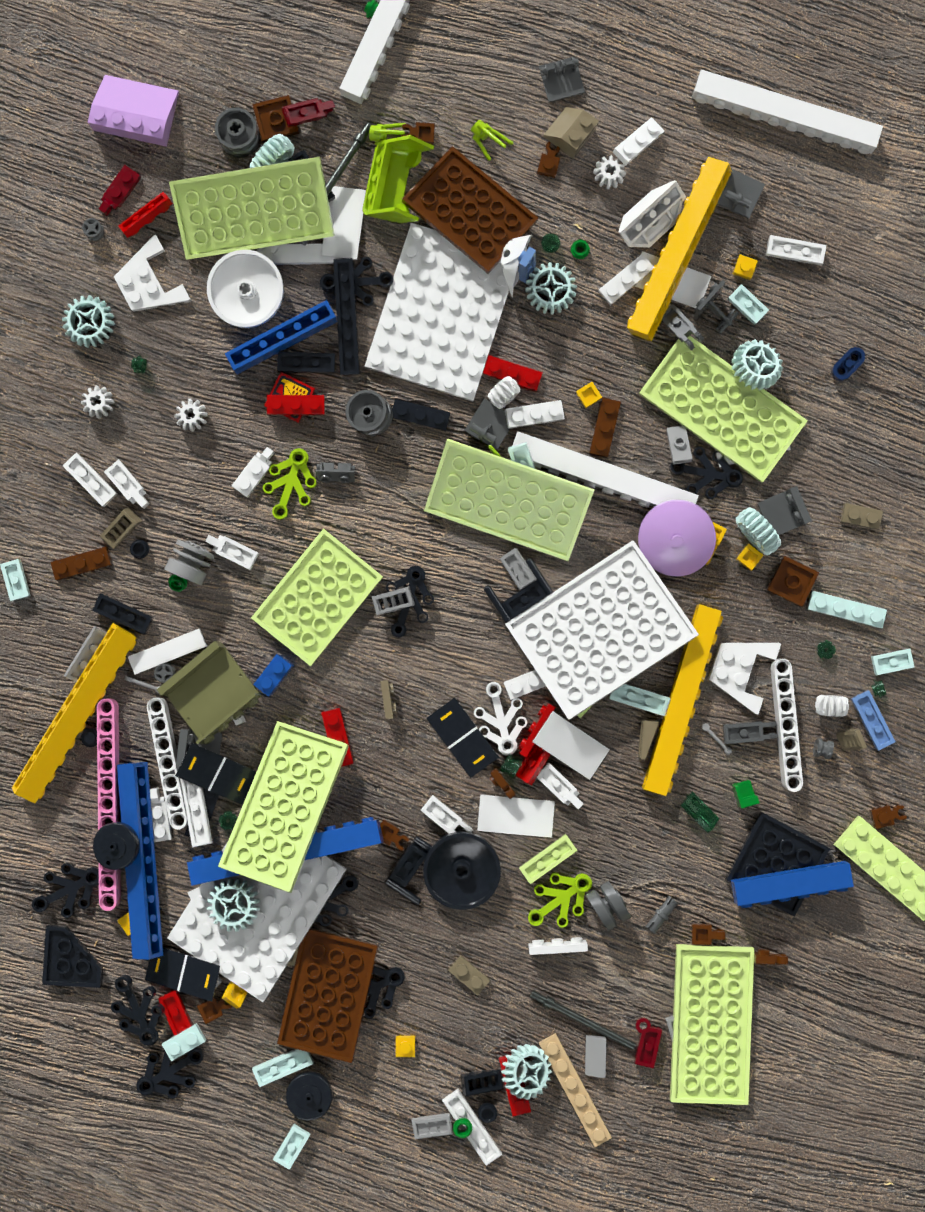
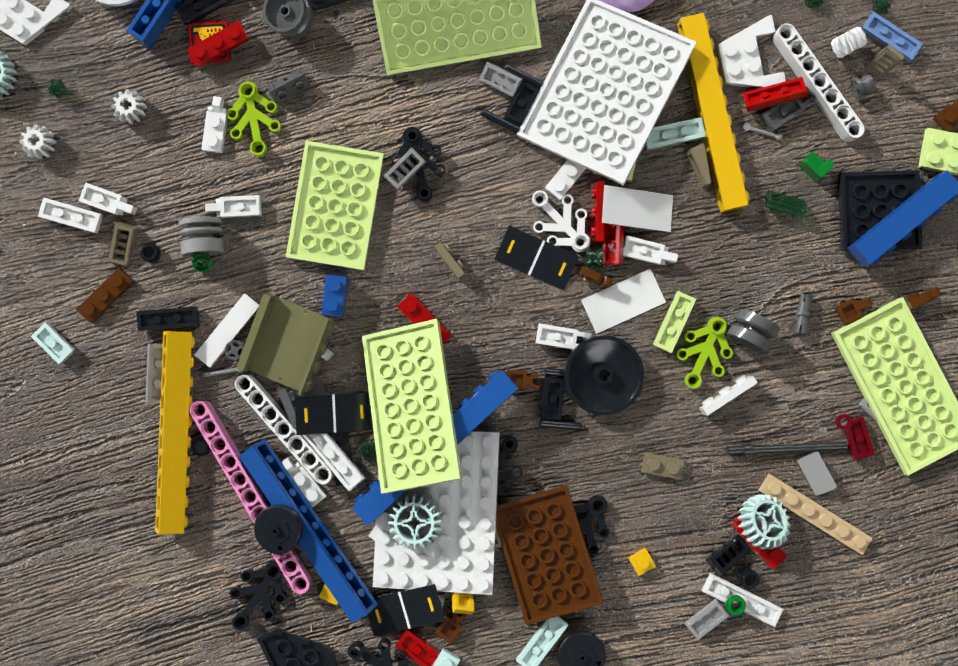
camera: 30 degrees left, 0 degrees up
(743, 714) = (775, 94): none -> red plate

